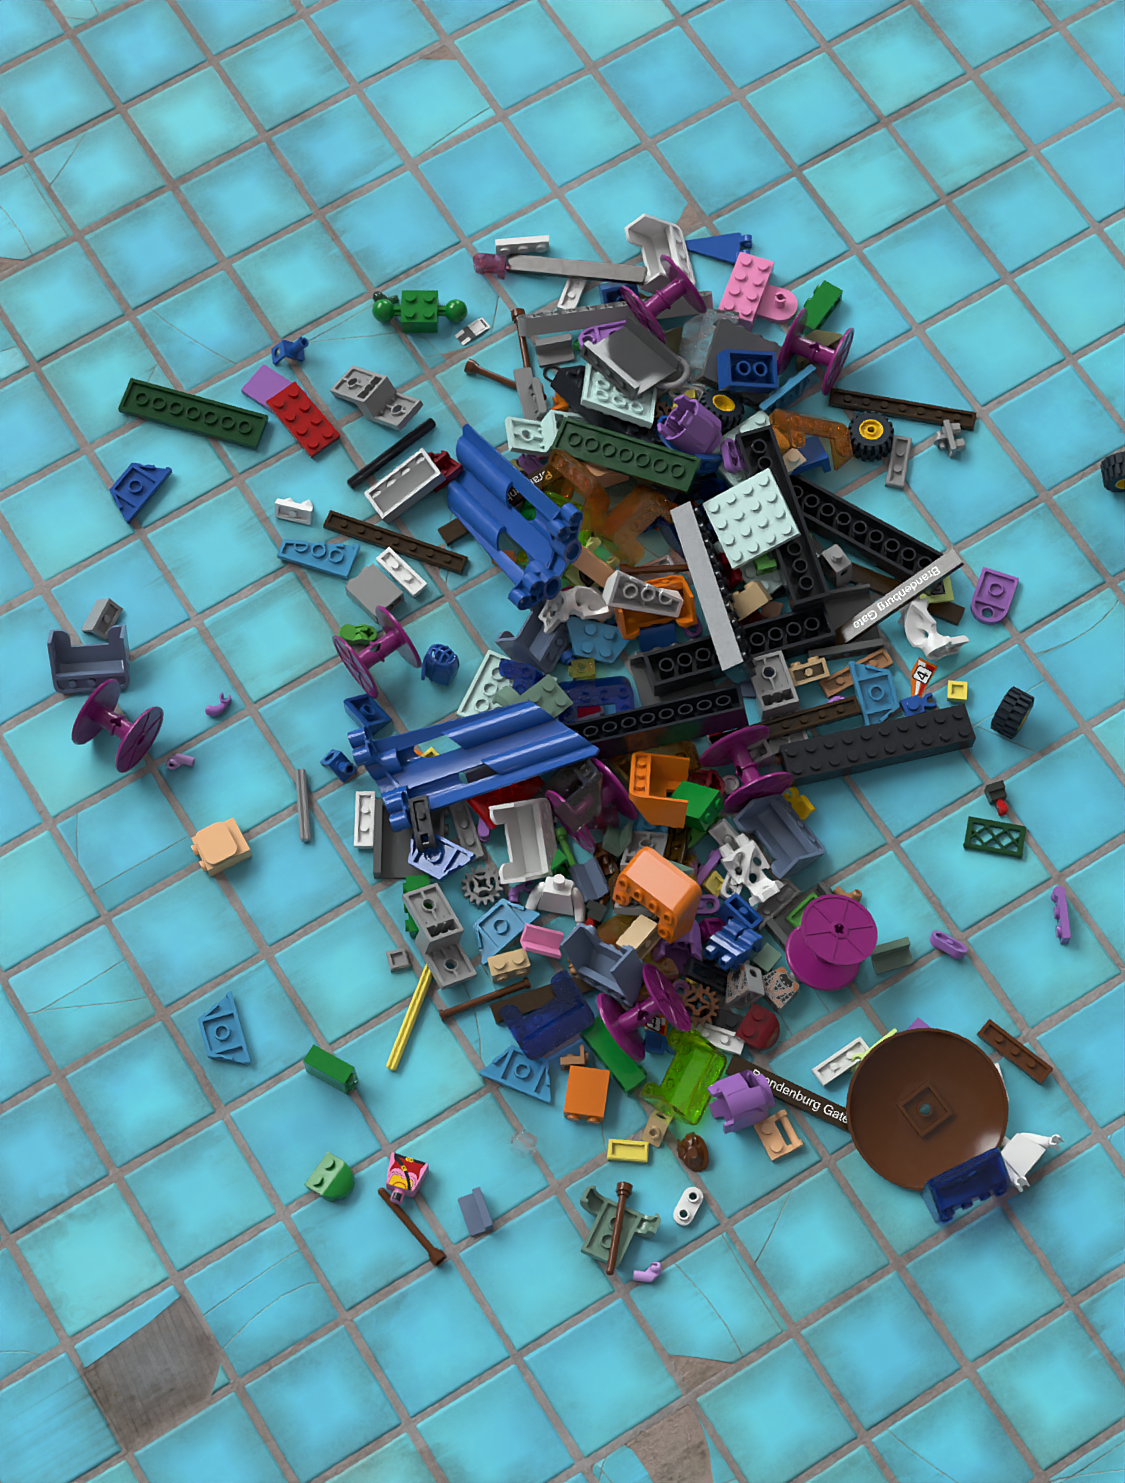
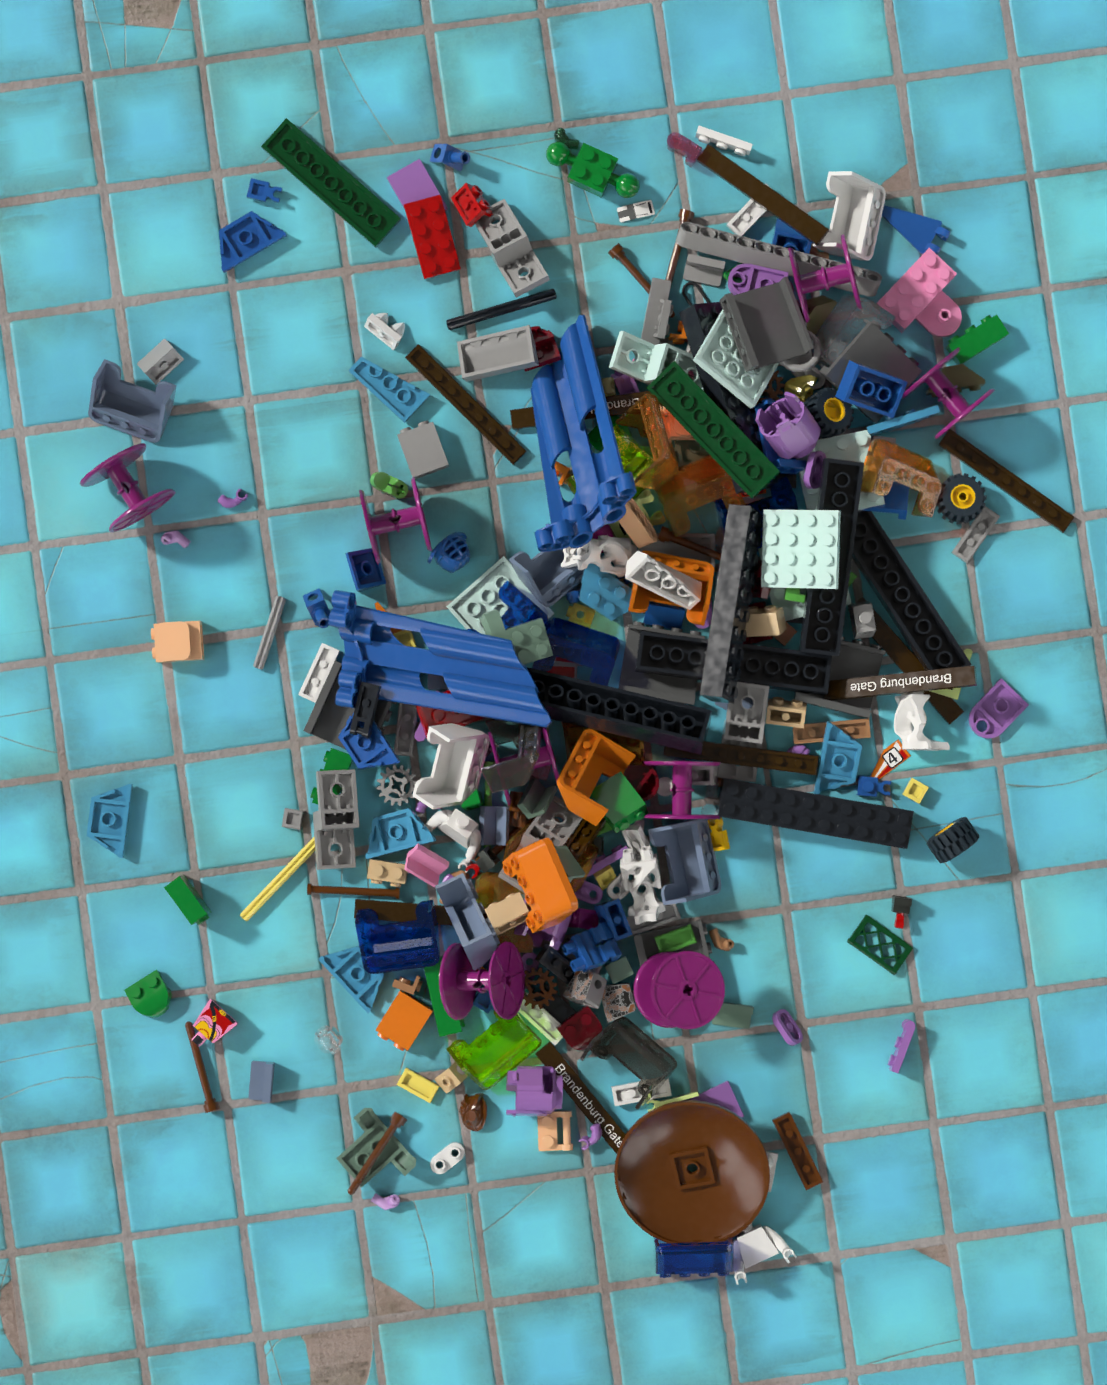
camera: 20 degrees right, 20 degrees up
(133, 444) = (260, 191): none -> blue plate
(324, 379) = (471, 204): none -> red bracket
(401, 572) = (457, 439): white plate -> none
(817, 1027) = (636, 1053): none -> clear smoke windscreen
(819, 1122) = (595, 1137): none -> medium lavender arm
(949, 430) = (1037, 526): light grey hips -> none

